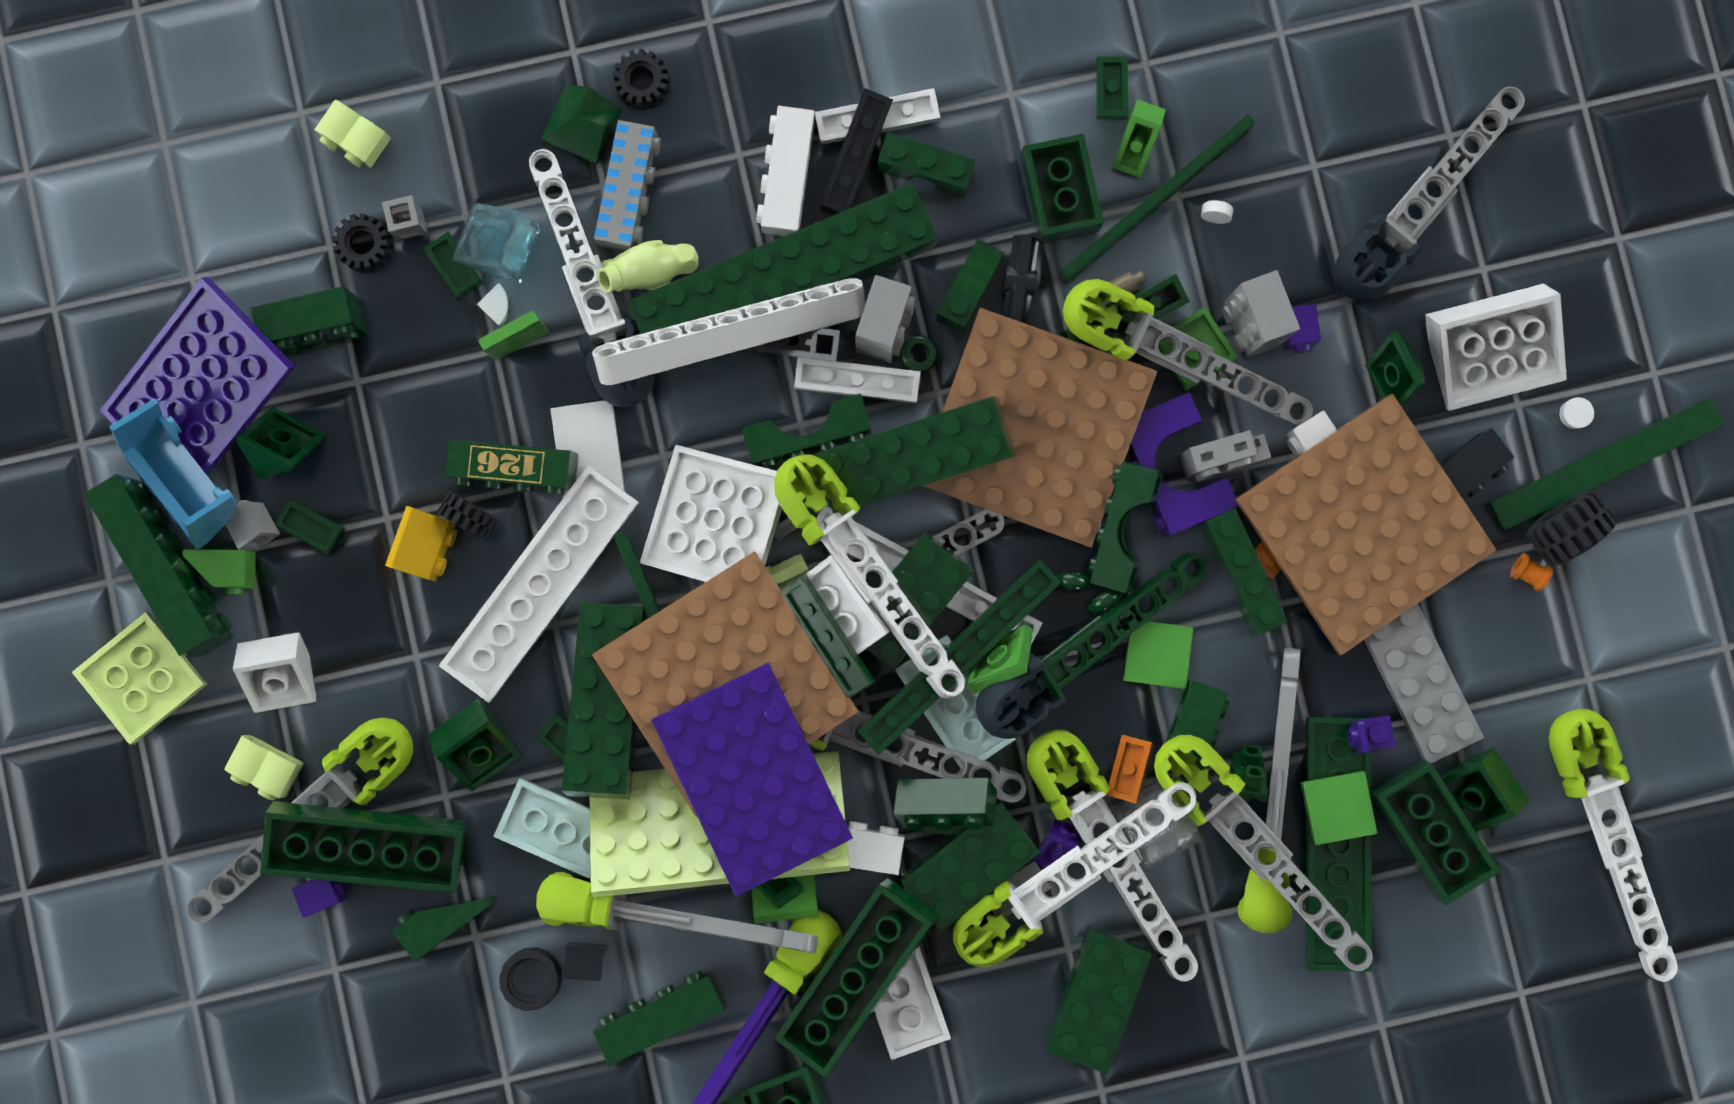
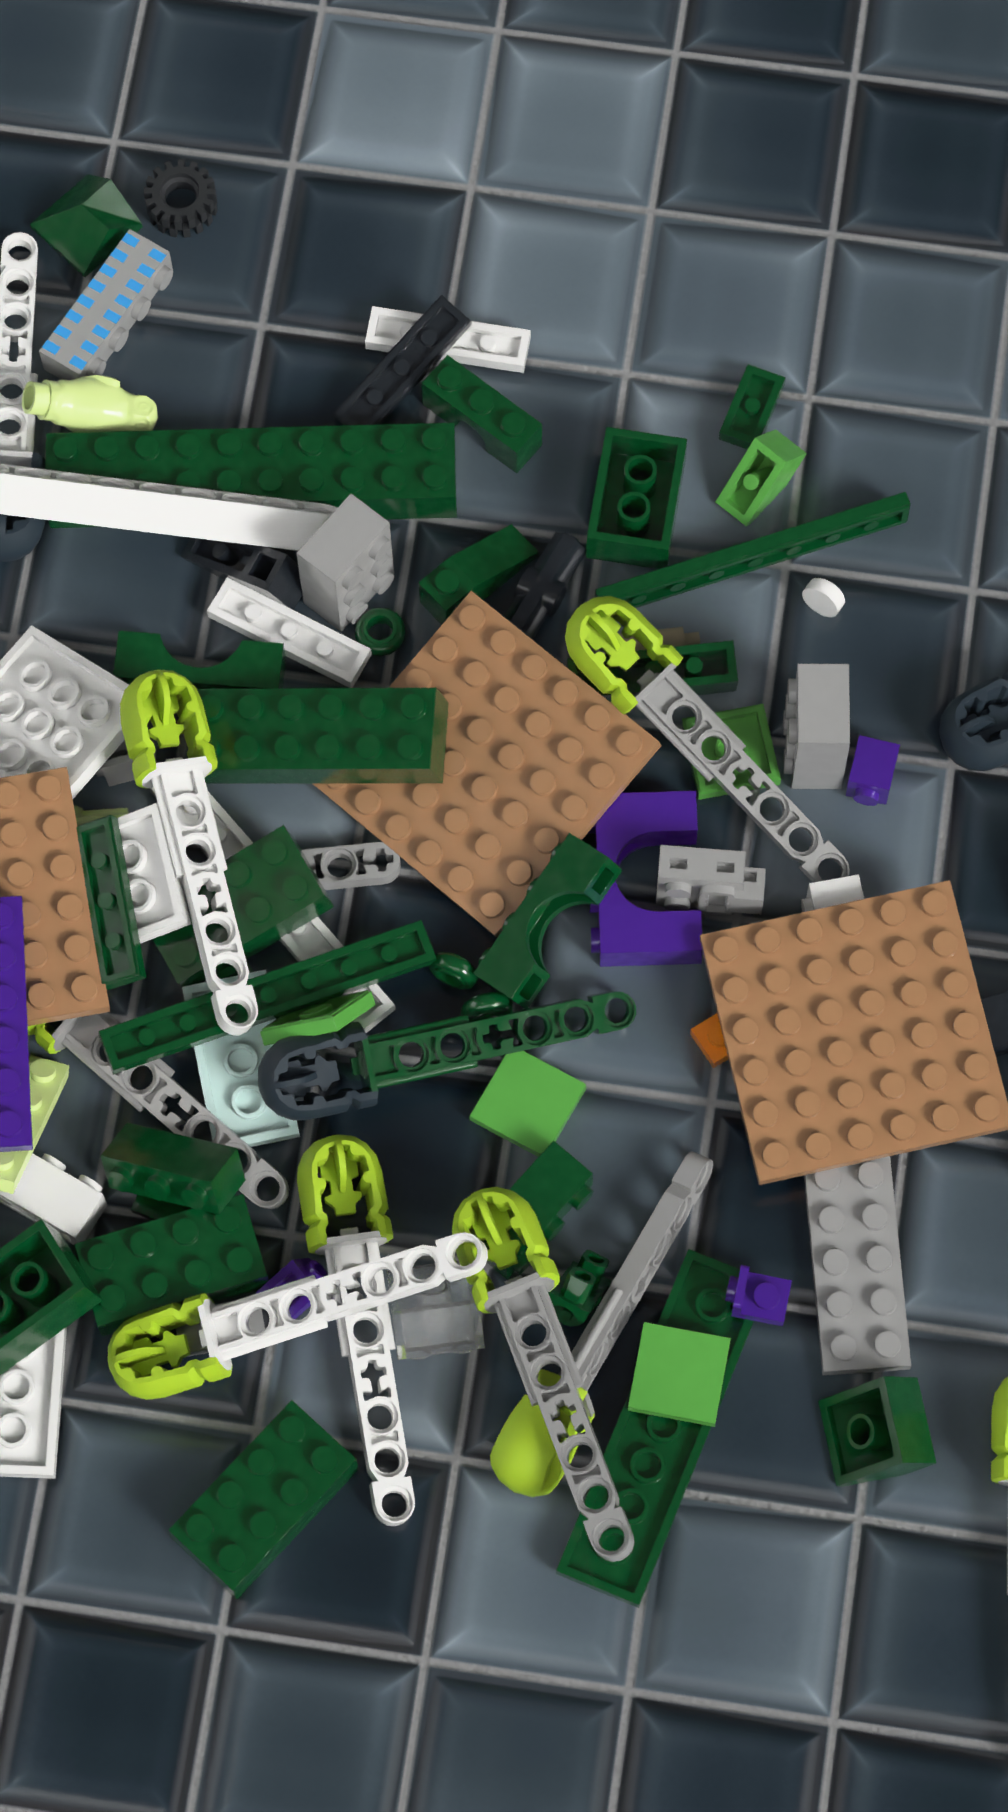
camera: 25 degrees right, 15 degrees down
(787, 172) = (311, 359): white brick -> none
(1130, 769) = (428, 1223): orange plate -> none
(1254, 592) = (677, 1038): dark green arch -> none
(1396, 369) = (975, 858): dark green slope -> none
(1434, 832) = (792, 1453): dark green brick -> none

